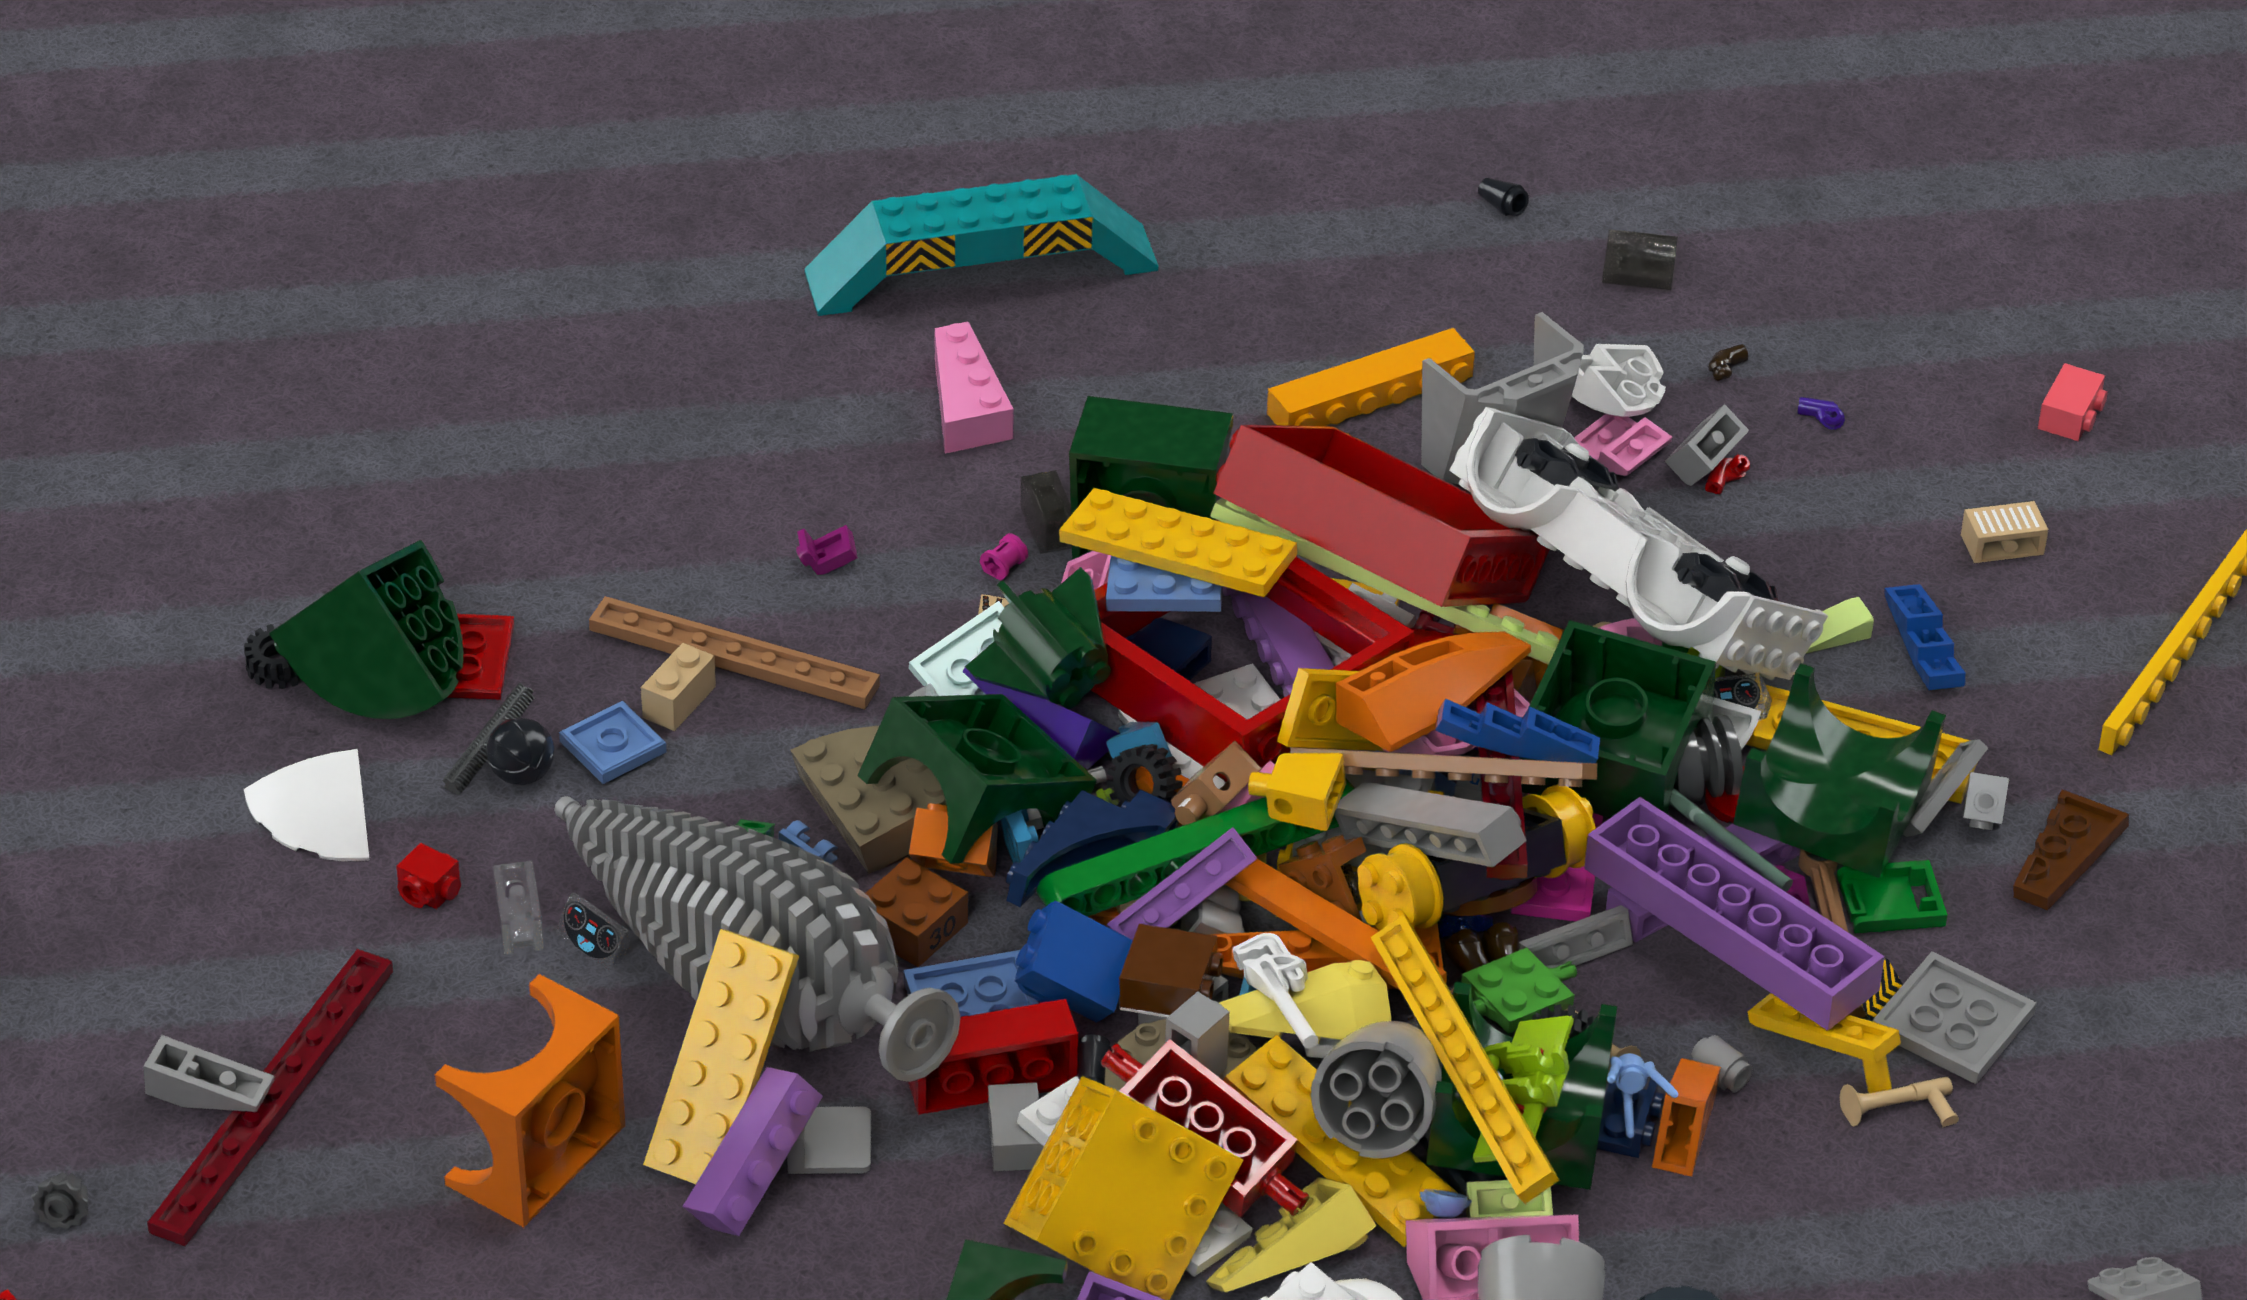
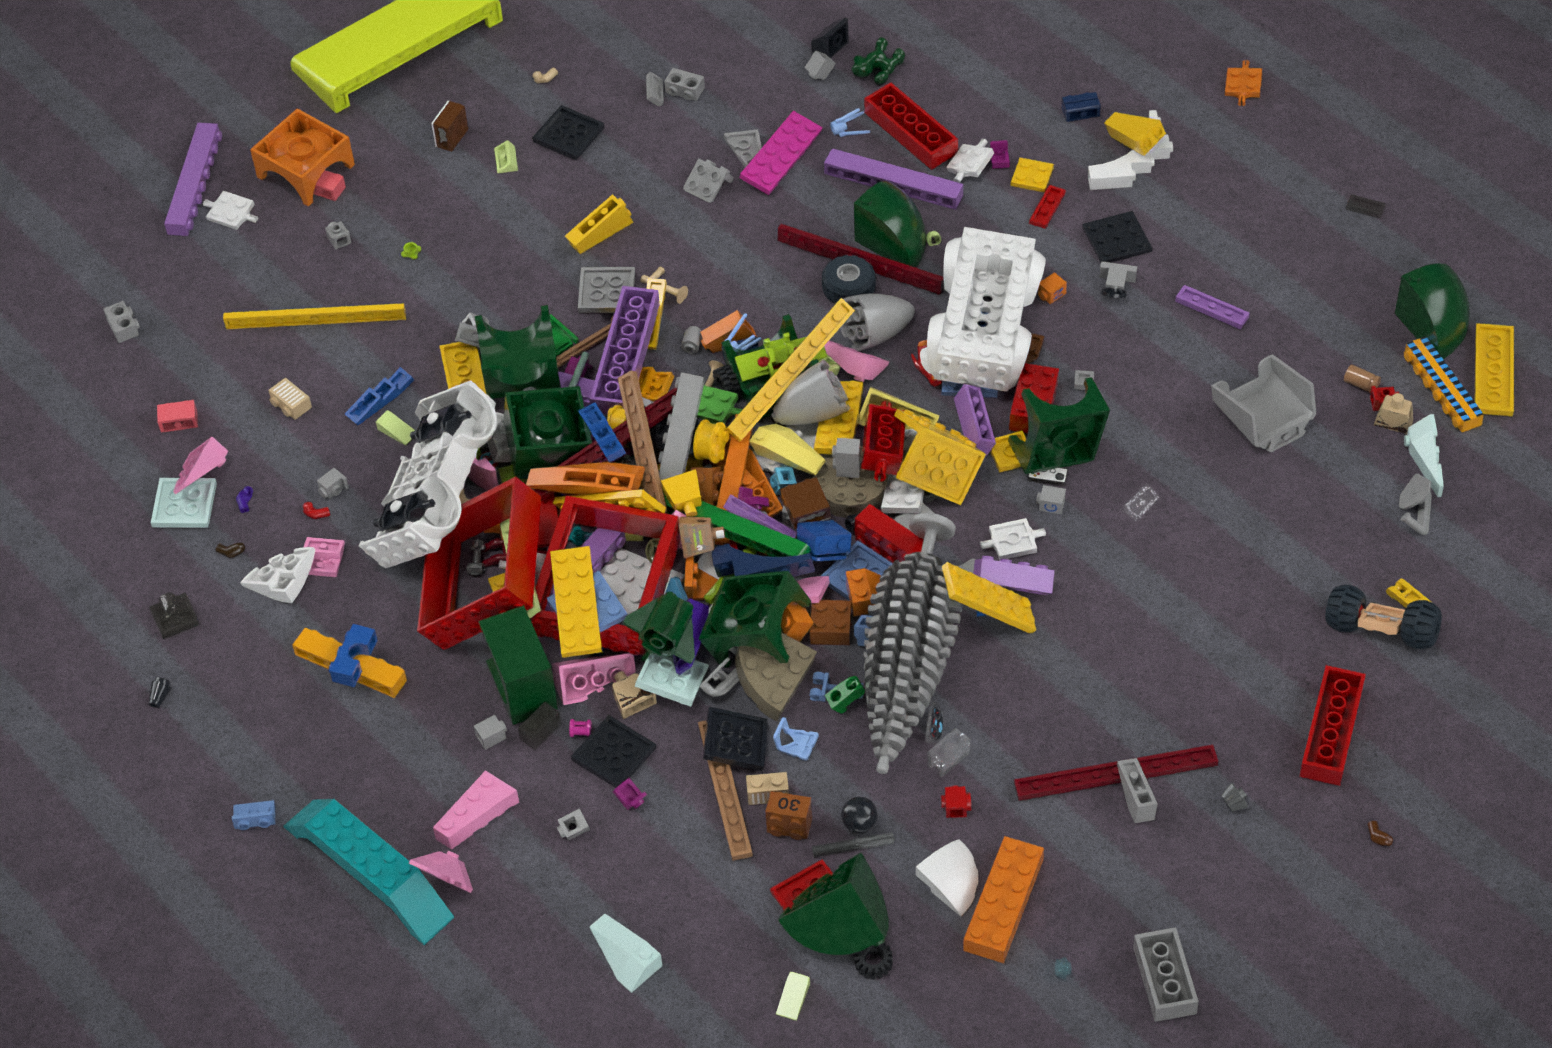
camera: 120 degrees left, 10 degrees up
(31, 836) = (1062, 968): none -> clear light blue plate
(208, 833) = (1003, 899): none -> orange brick
(321, 558) = (793, 995): none -> yellowish green slope
(546, 1113) = (1062, 637): orange piece -> none
(568, 436) = (627, 953): none -> light aqua wedge
(598, 669) = (788, 815): none -> dark orange brick
(612, 742) = (823, 793): medium blue plate -> none
(722, 770) = (802, 743): none -> light blue piece
(800, 687) = (735, 738): none -> black plate
(835, 472) = (576, 818): none -> light grey brick
(856, 1240) = (1013, 539): none -> white plate
(876, 294) = (444, 867): none -> bright pink wedge
(924, 572) = (613, 751): none -> black plate
(928, 956) = (860, 587): none -> orange slope
(984, 901) = (814, 587): none -> bright pink slope
(1155, 762) = (701, 573): black tyre -> none
(1186, 202) = (253, 815): none -> medium blue bracket
(1242, 912) = (746, 495): none -> magenta bracket
(1273, 971) = (790, 455): white piece -> none
(1377, 372) = (357, 641): none -> blue arch
(1444, 1203) = (842, 371): medium blue animal -> none
(1534, 393) = (357, 559): light grey windscreen -> none
(1662, 966) = (654, 384): none -> light orange slope
(1706, 445) = (309, 517): light grey brick -> none
(1764, 504) = (332, 484): none -> light grey brick
(1870, 347) = (185, 509): none -> light aqua plate
(1929, 383) = (200, 462): none -> bright pink wedge
(2069, 845) = (480, 298): reddish brown wing -> none
(2128, 1075) = (600, 224): none -> yellow slope

